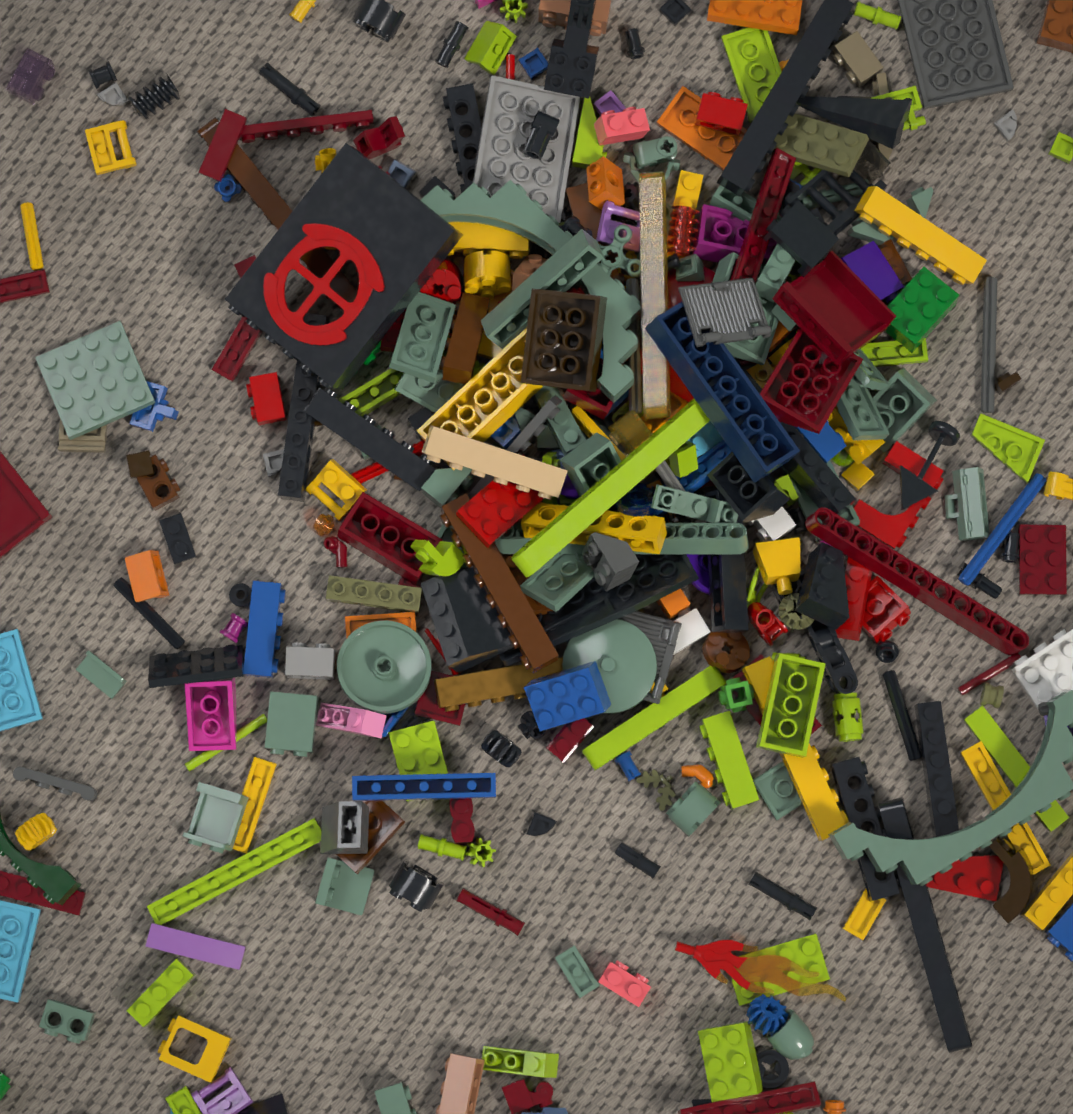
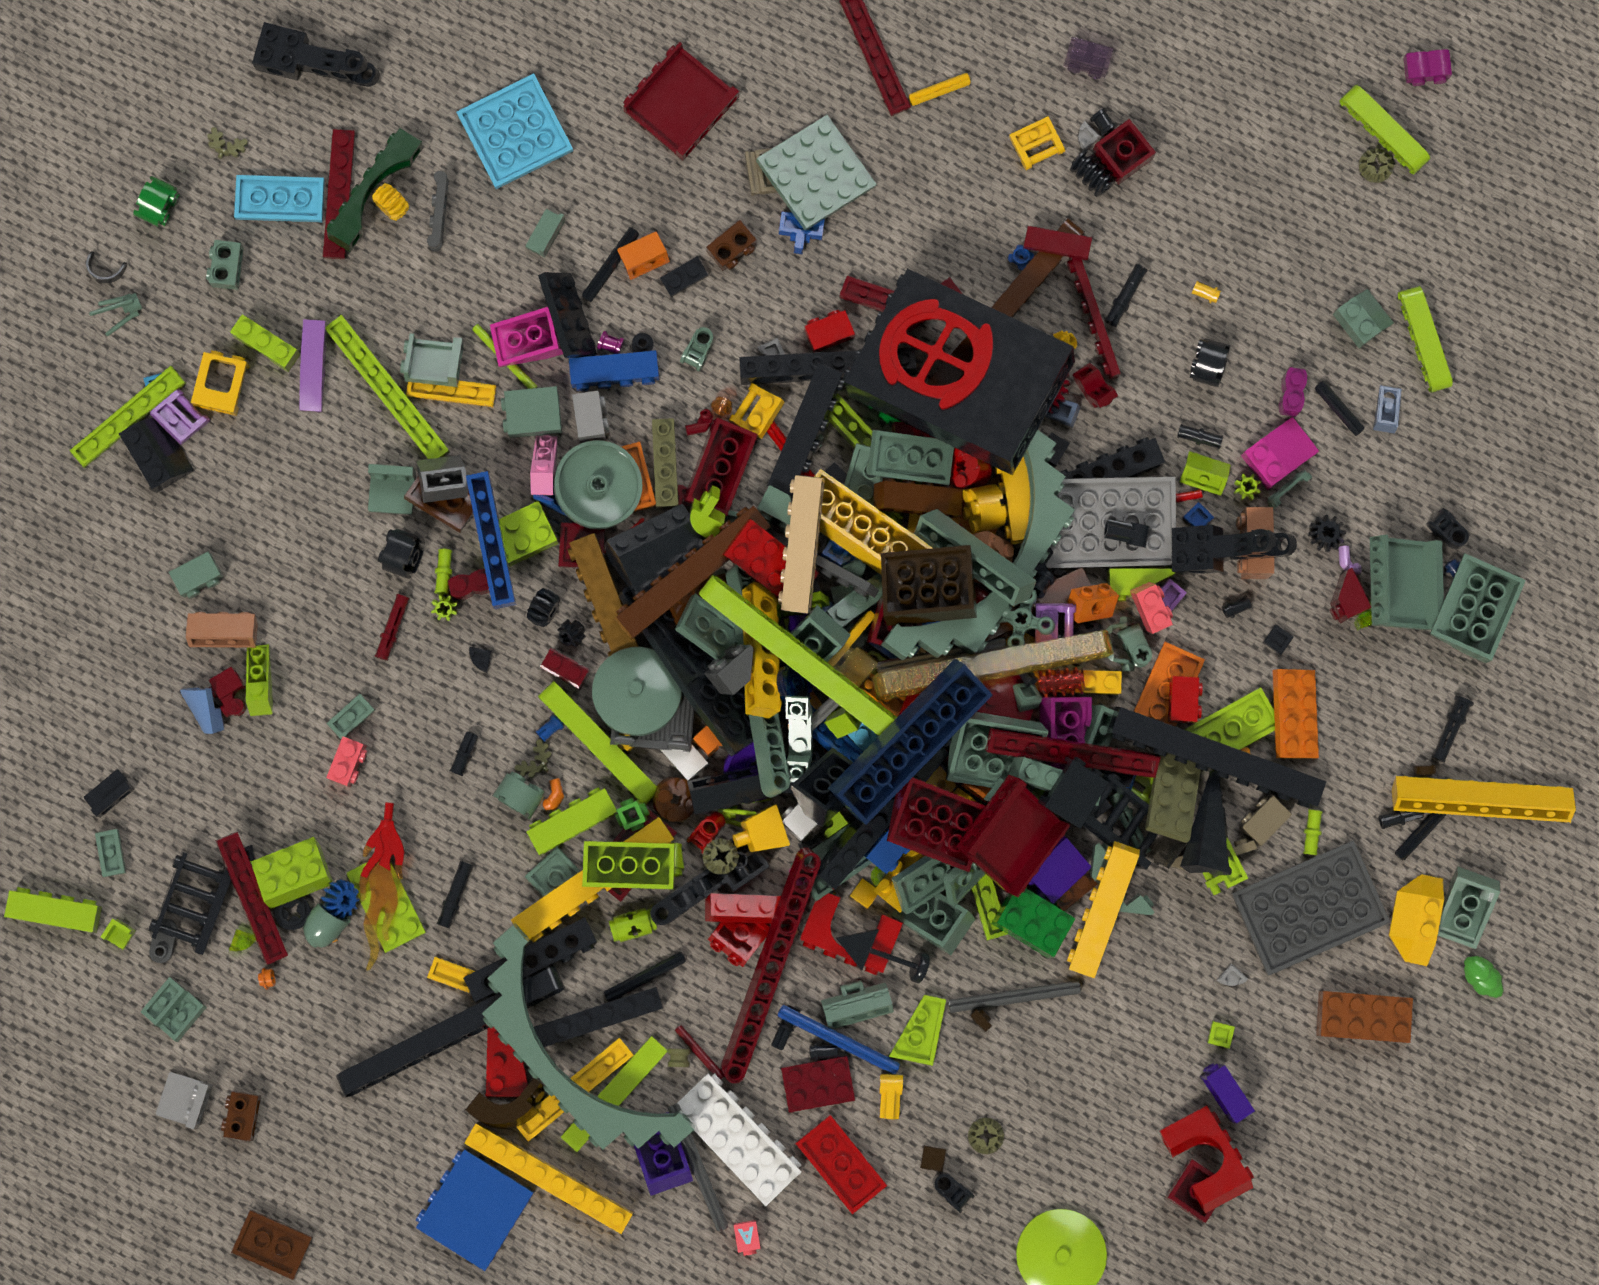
camera: 75 degrees right, 0 degrees up
(139, 59) = (1124, 151): none -> dark red brick
(140, 464) = (743, 227): dark brown tile -> none
(259, 538) = (697, 350): none -> sand green piece
(567, 696) = (599, 656): blue brick -> none
(724, 311) = (985, 730): dark grey window -> none
(824, 587) = (746, 876): black wedge -> none
(887, 651) = (701, 951): black plate -> none

